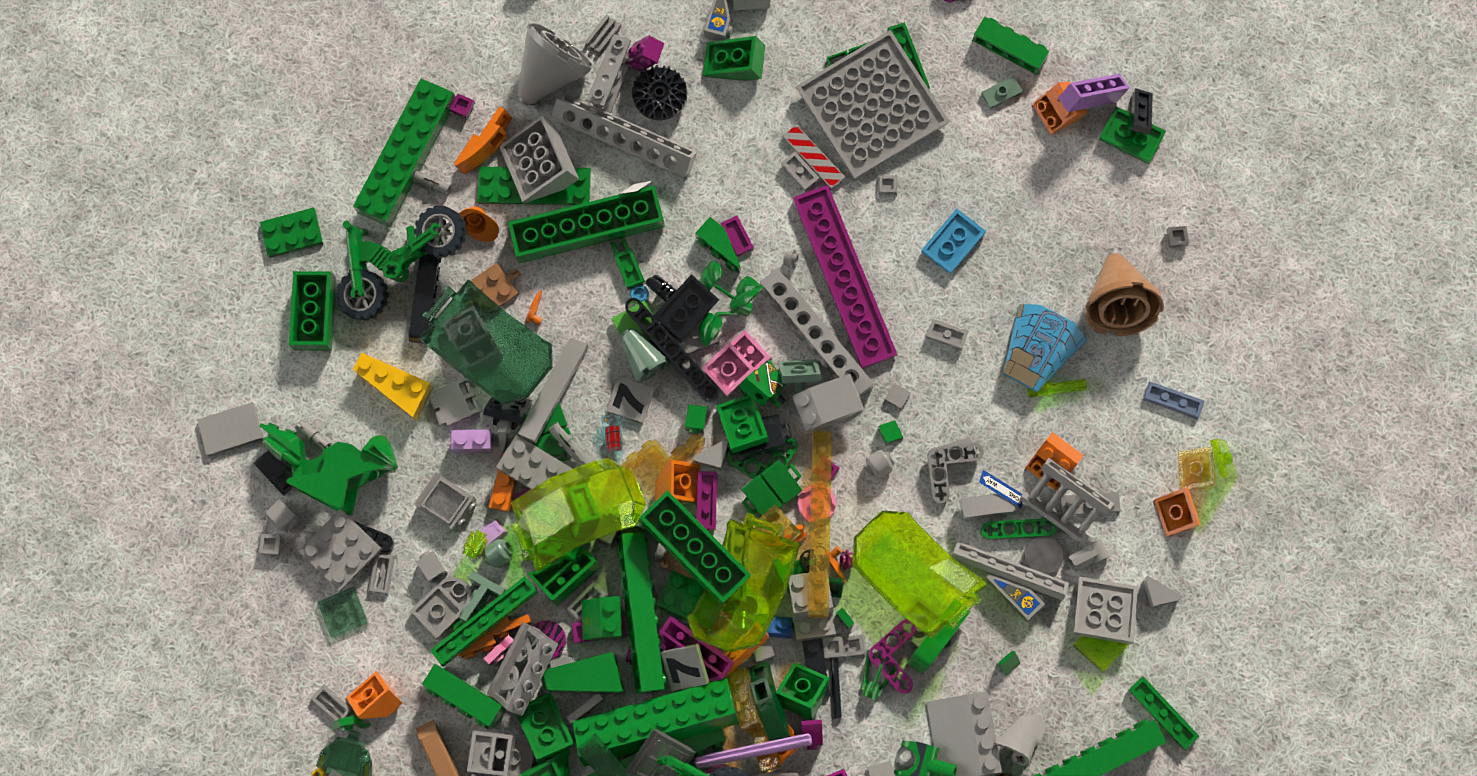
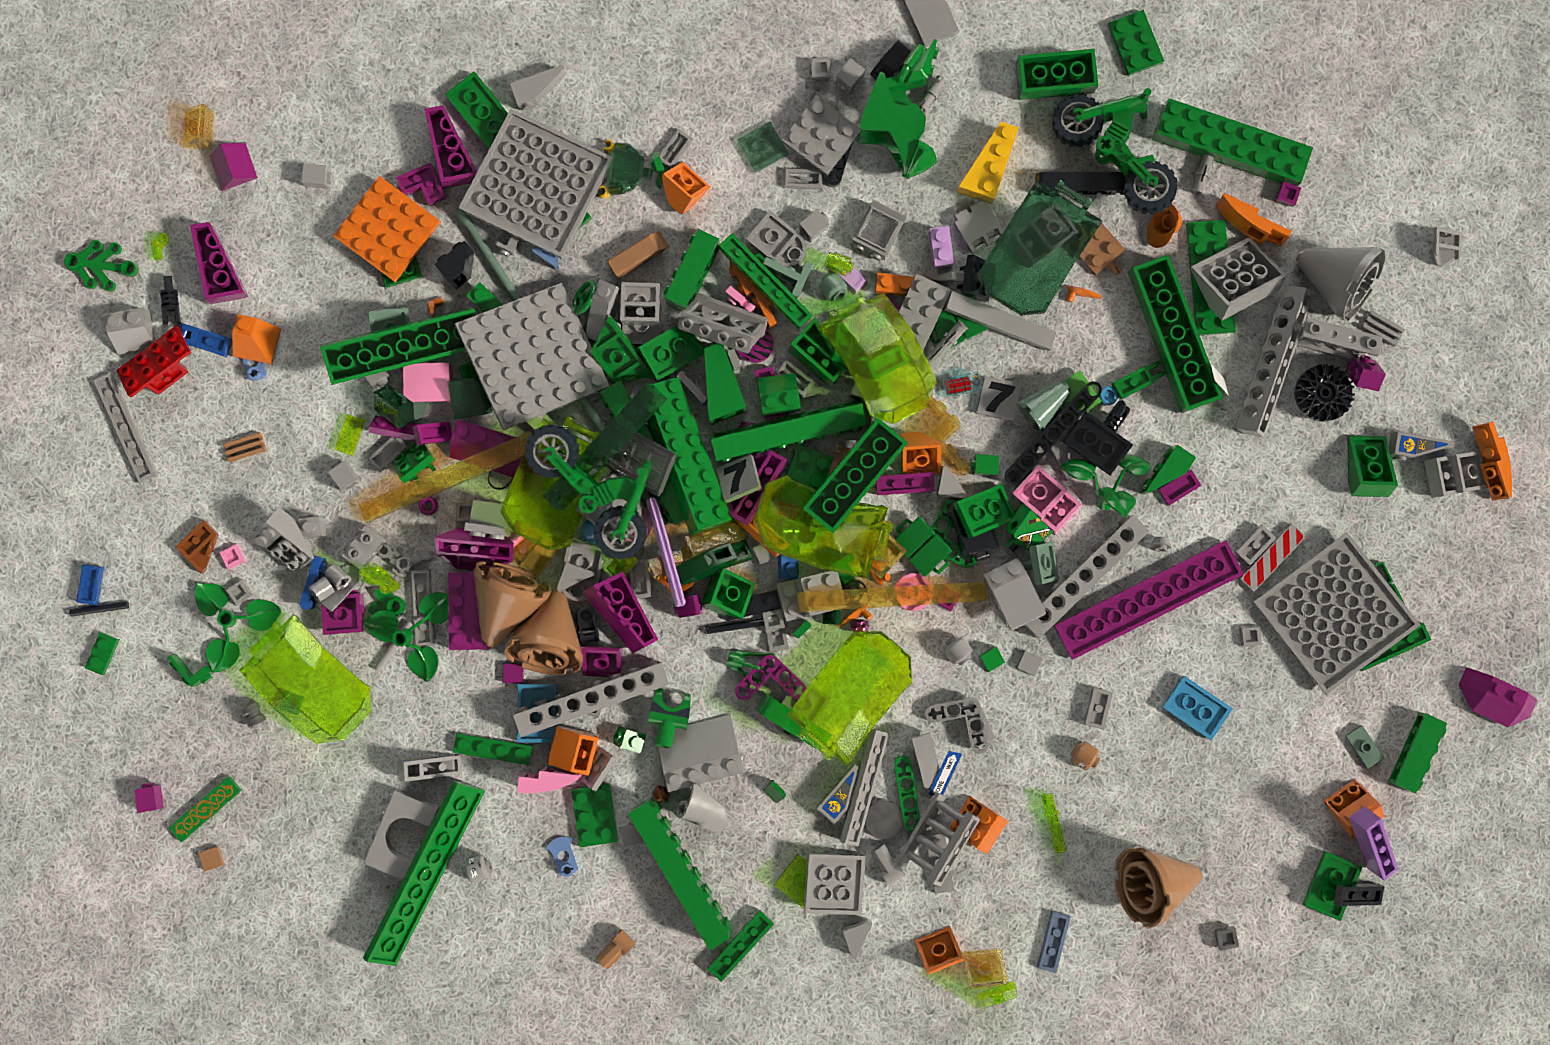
camera: 80 degrees right, 10 degrees up
(993, 351) = (1085, 755): none -> medium nougat head
(1040, 345) = (1096, 803): wedge -> none

